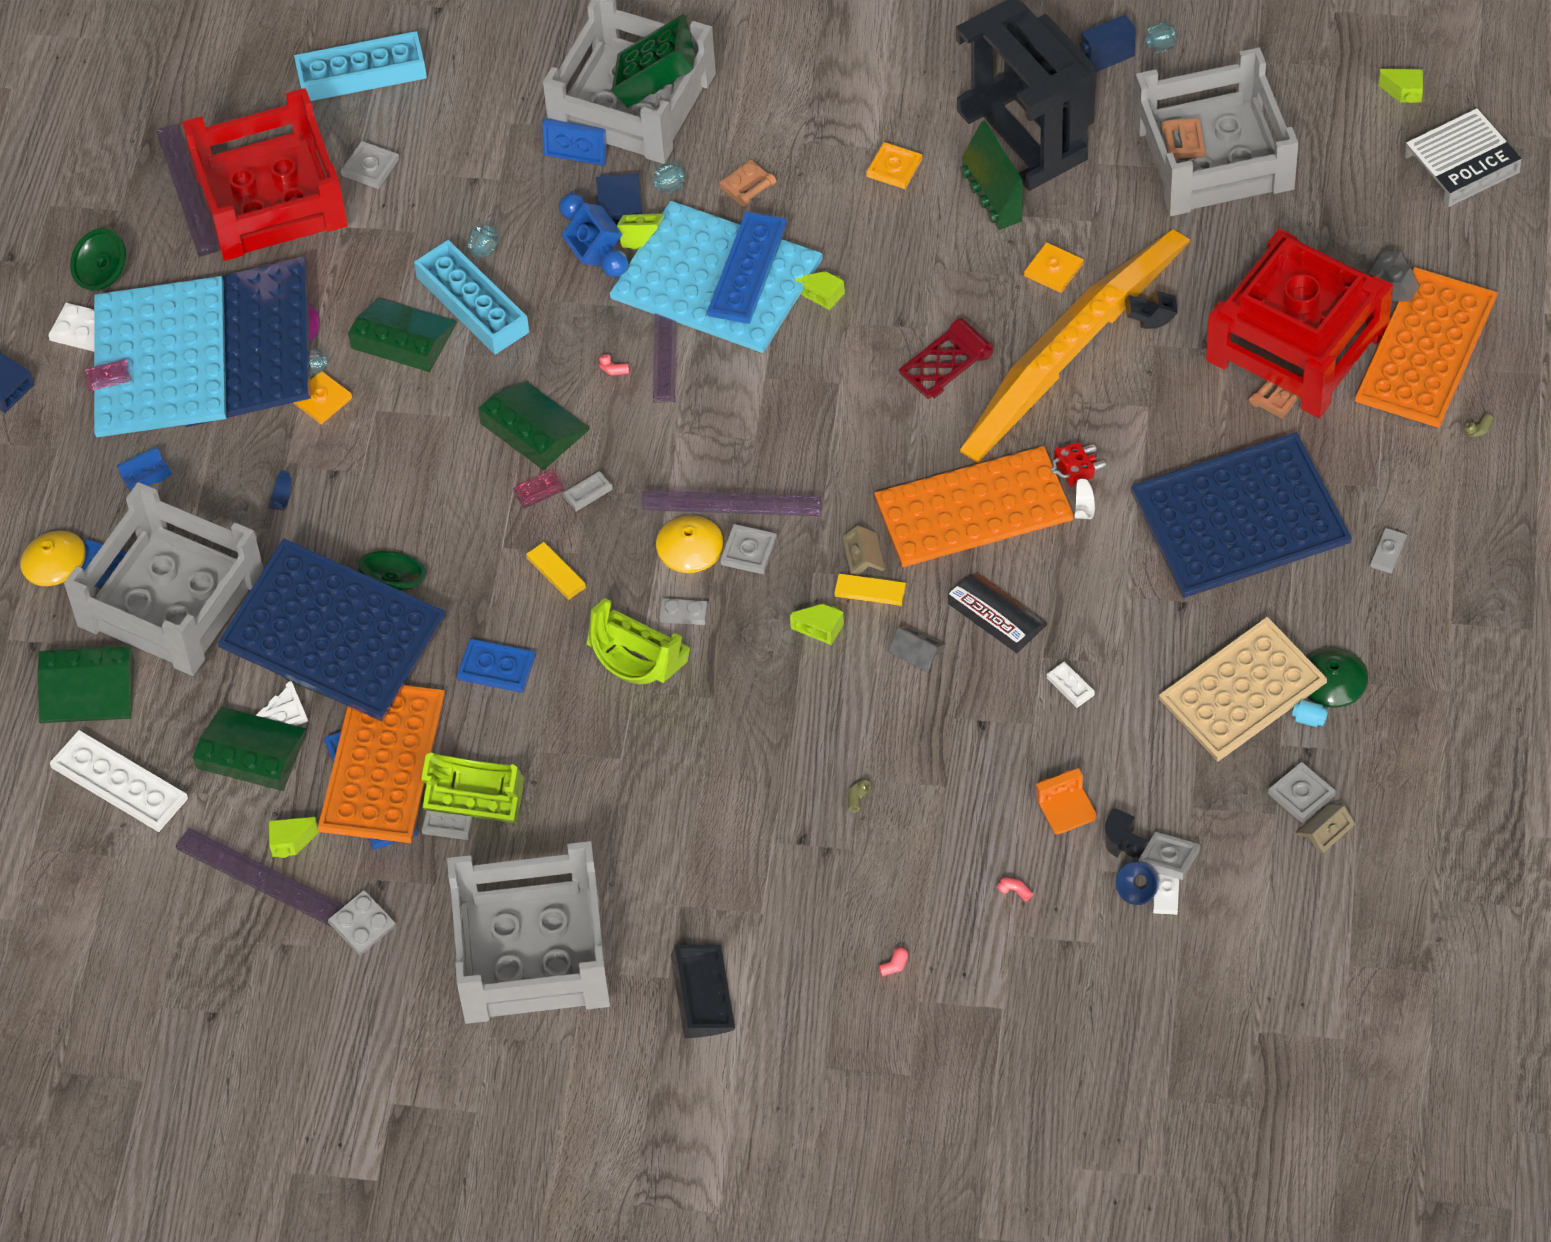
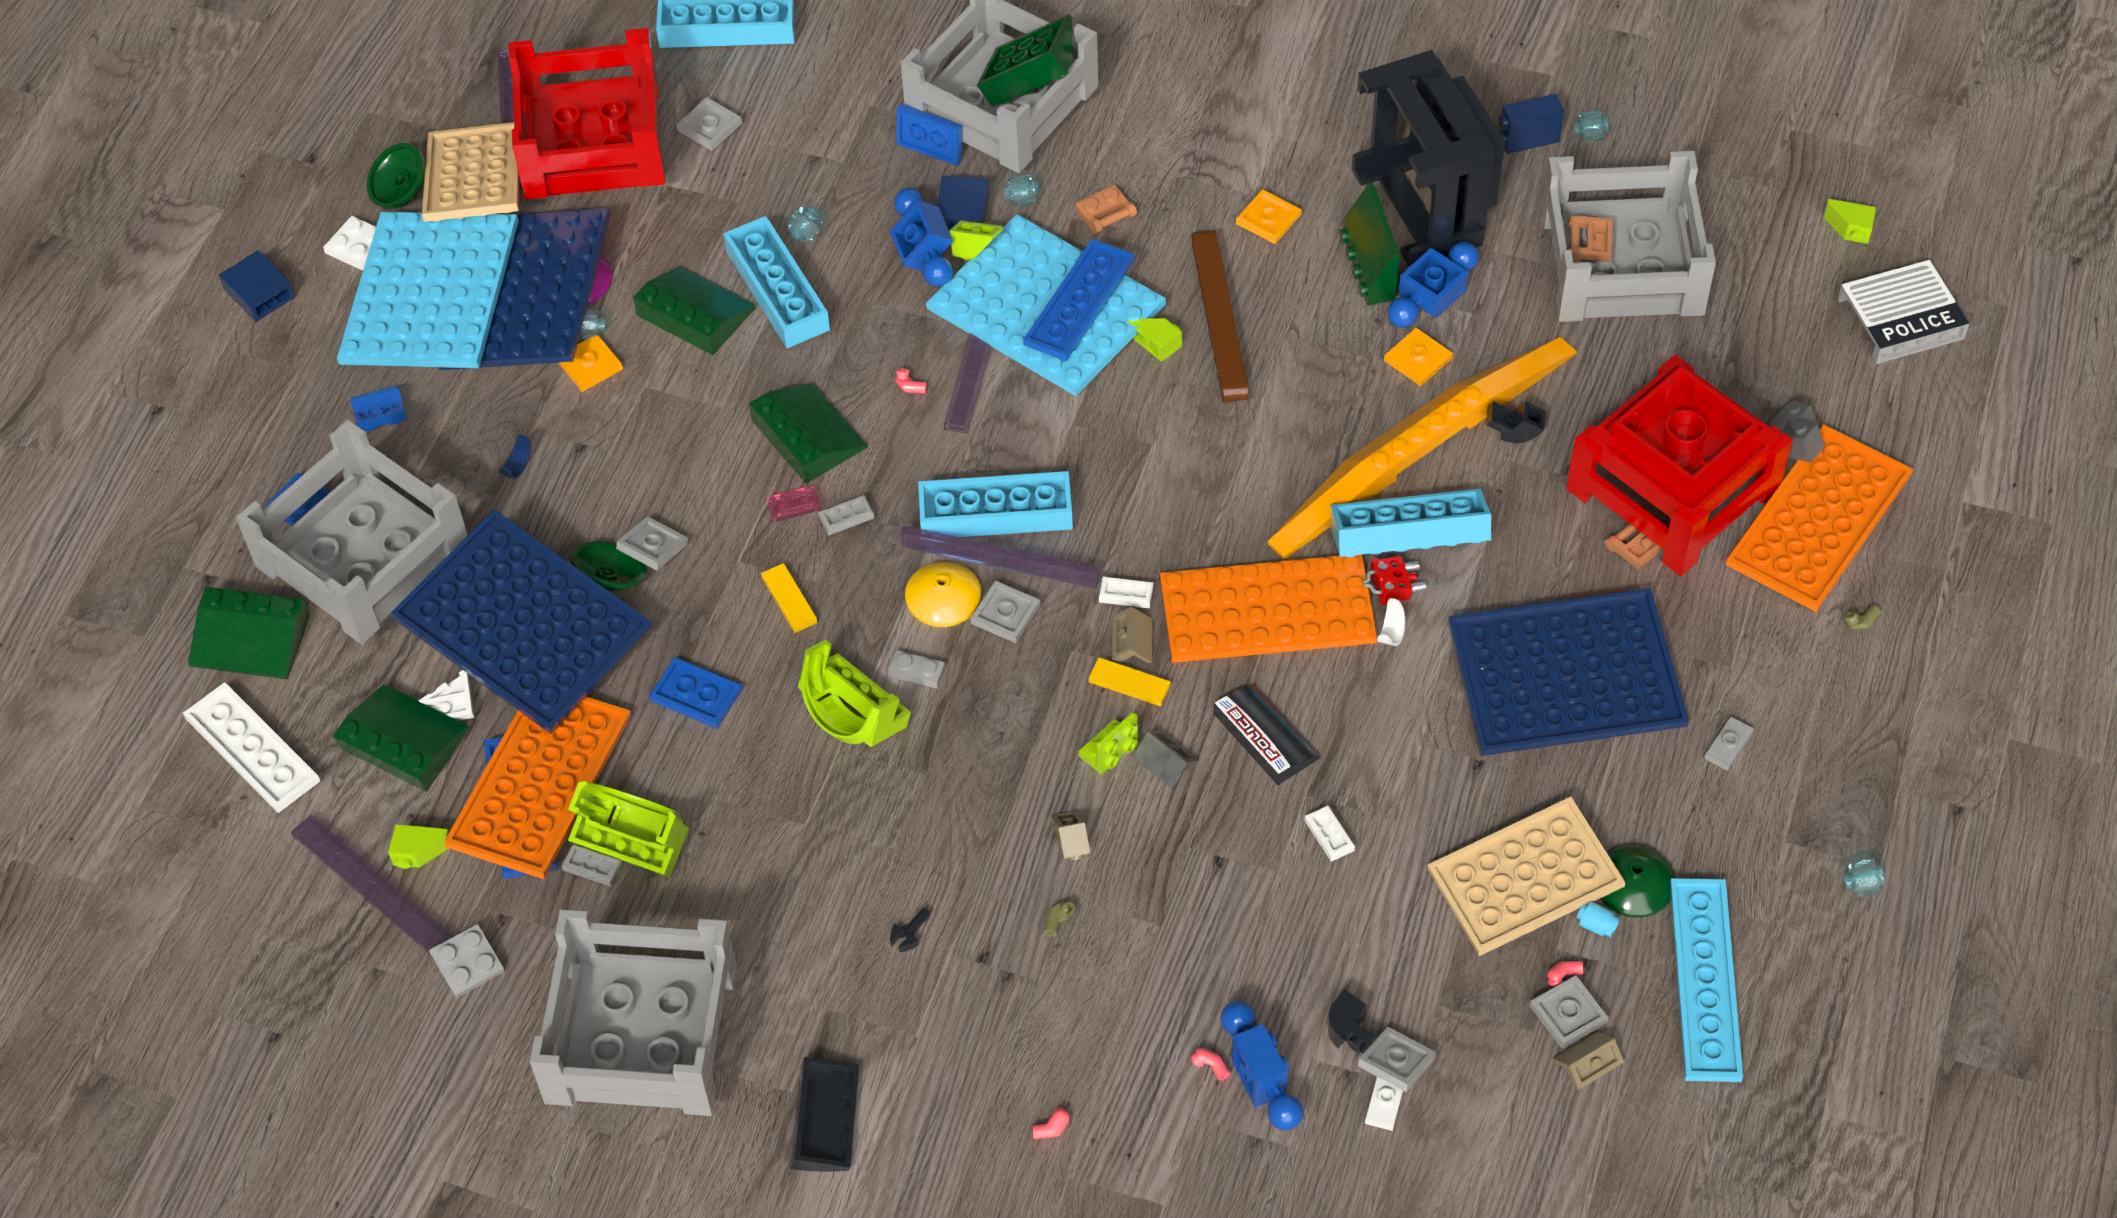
camera: 10 degrees right, 0 degrees up
(52, 557) = (253, 481): yellow dish -> none
(107, 375) = (366, 299): clear pink plate -> none
(169, 244) = (470, 173): none -> tan plate
(423, 544) = (652, 543): none -> light grey plate
(719, 458) = (996, 504): none -> medium azure brick
(734, 829) = (908, 931): none -> black bar
(818, 622) = (1062, 709): lime slope -> none
(849, 514) = (1126, 592): none -> white plate
(852, 725) = (1071, 834): none -> slope
(867, 644) = (1111, 744): none -> lime bracket
(872, 261) = (1219, 316): none -> reddish brown beam
(964, 338) = (1304, 424): dark red piece -> none
(1053, 201) = (1432, 283): none -> blue brick
(1058, 881) = (1260, 1065): none -> blue brick
(1065, 801) = (1291, 971): orange bracket -> none
(1081, 412) = (1410, 522): none -> medium azure brick
(1126, 883) = (1341, 1089): dark blue piece -> none
(1289, 759) = (1562, 969): none -> coral arm
(1408, 746) = (1705, 980): none -> medium azure plate
(1522, 640) = (1864, 878): none -> clear light blue head

